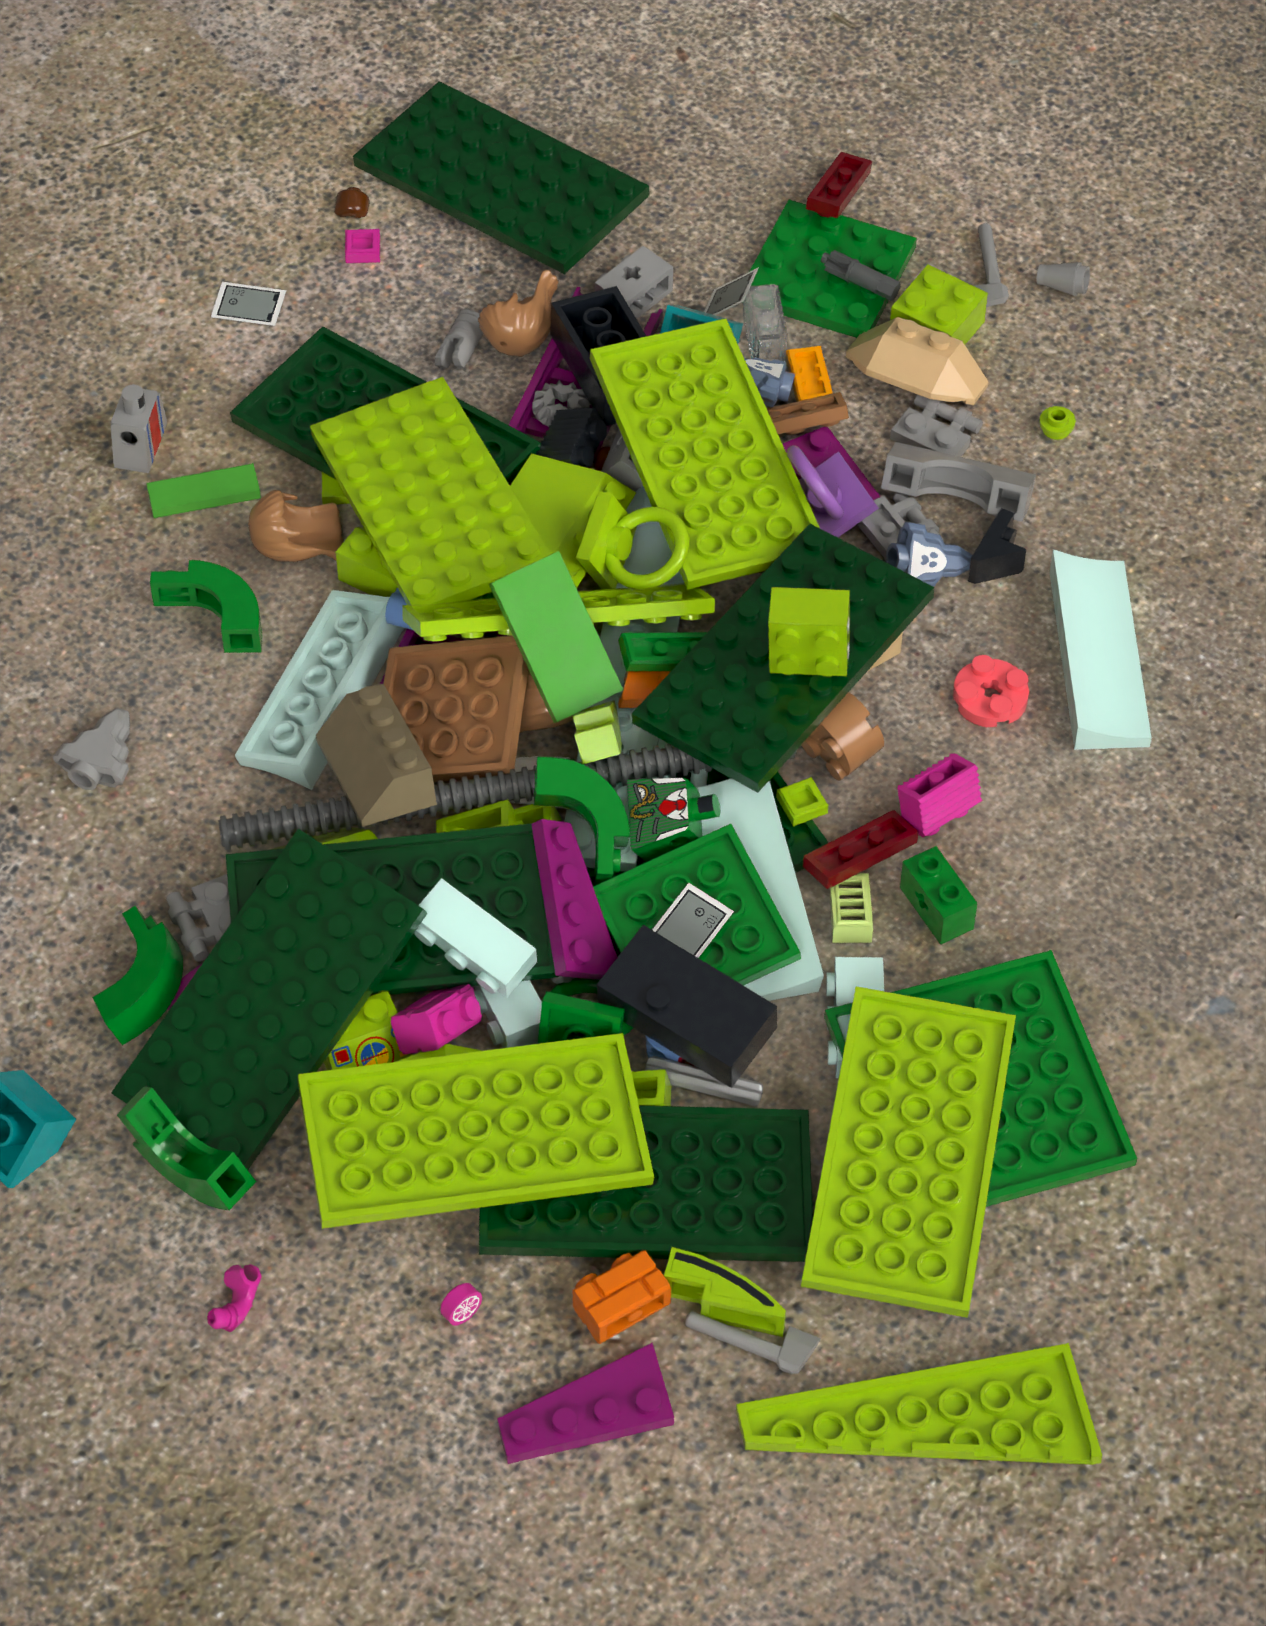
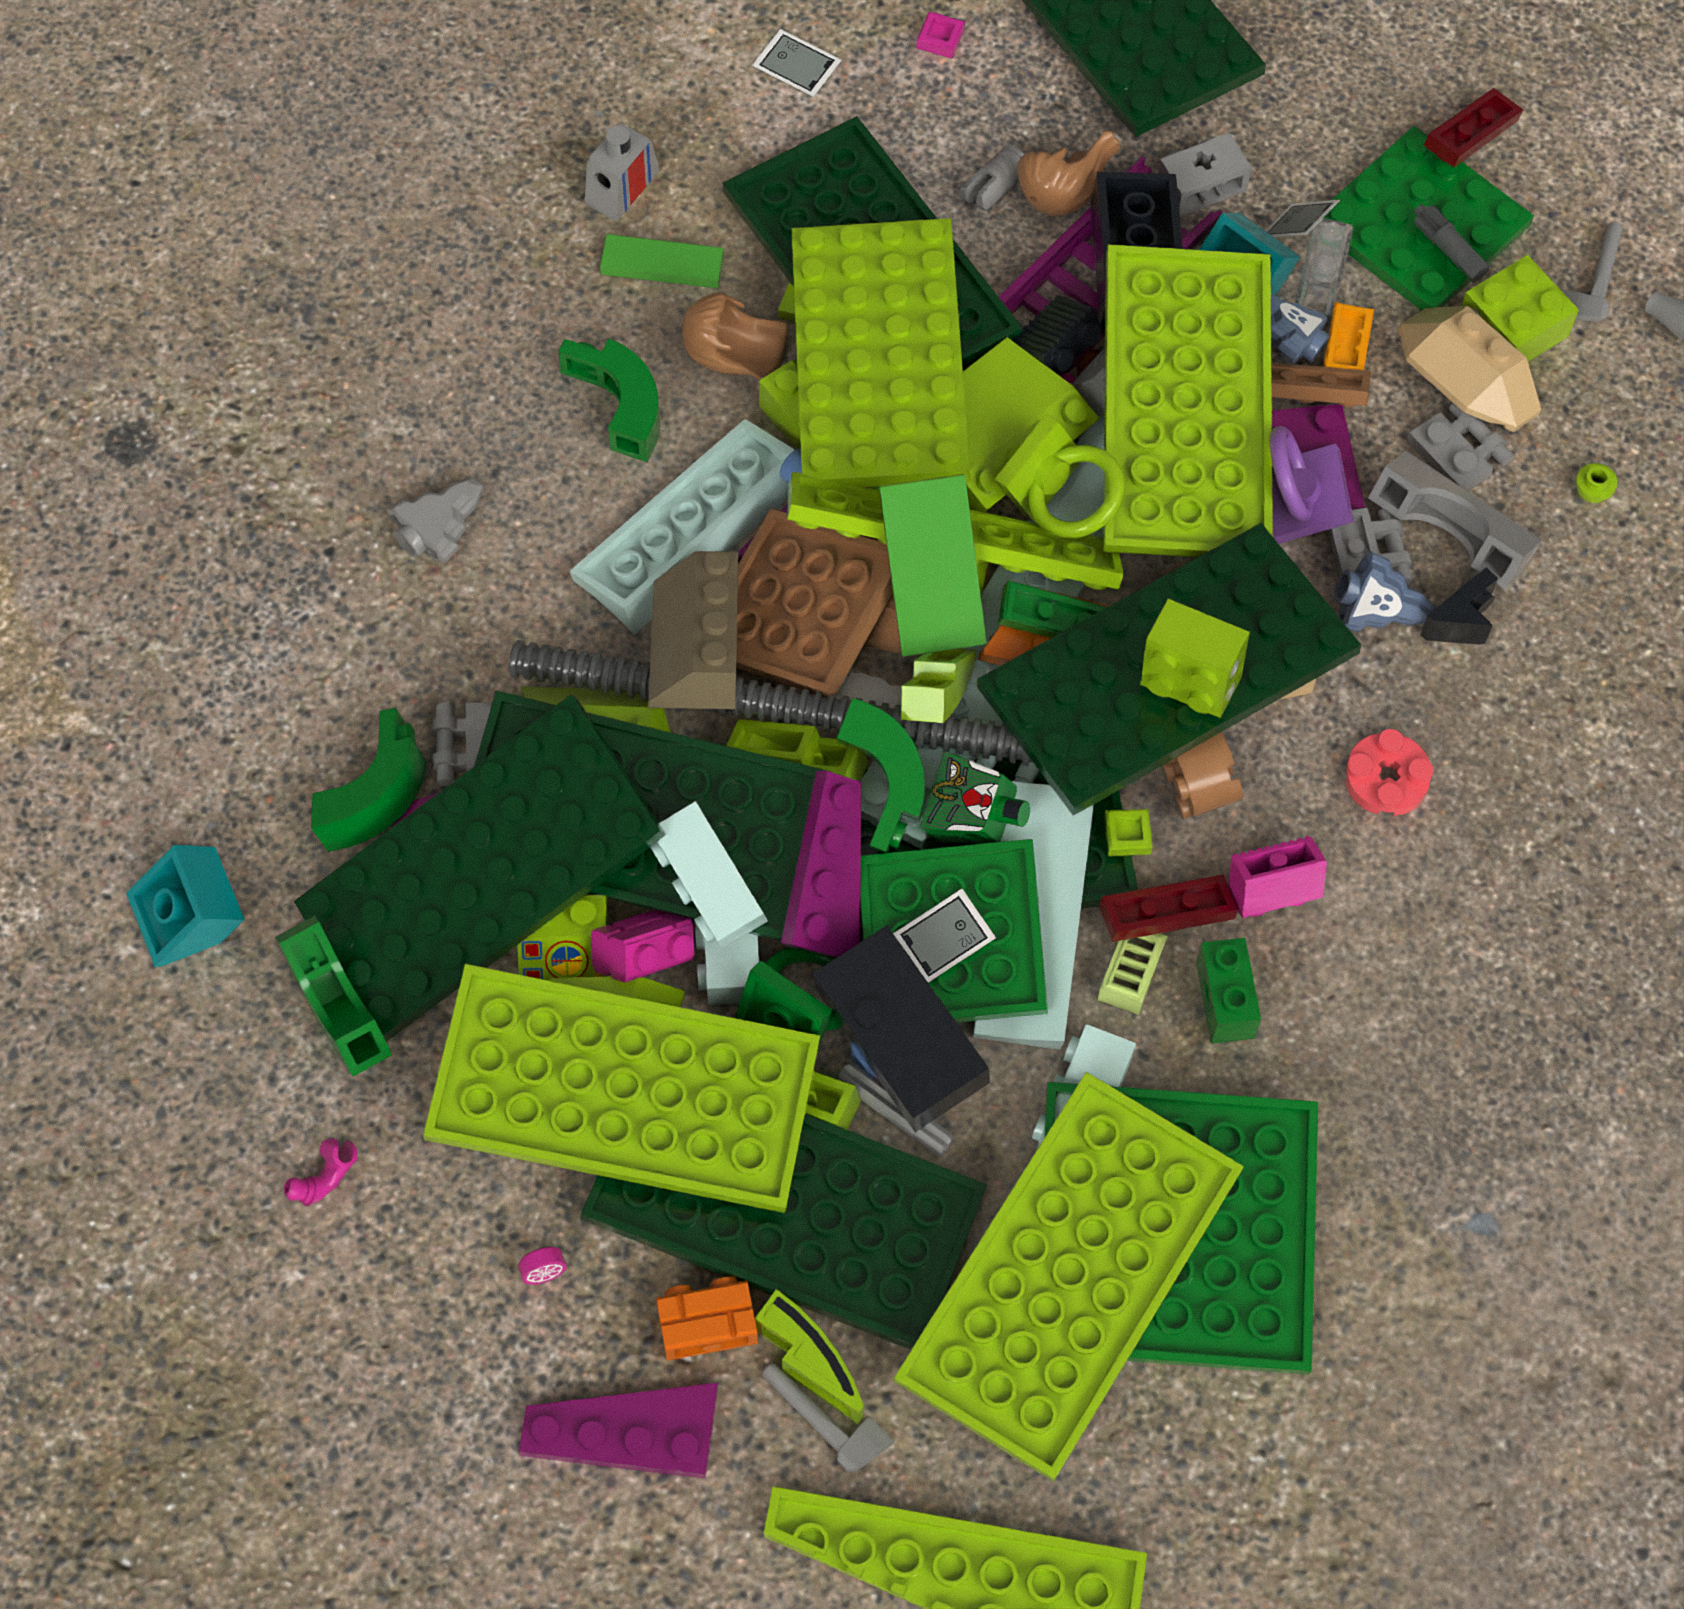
camera: 20 degrees right, 10 degrees up
(544, 400) = (1051, 280): light grey gear -> none
(1099, 653) = (1525, 769): light aqua arch -> none

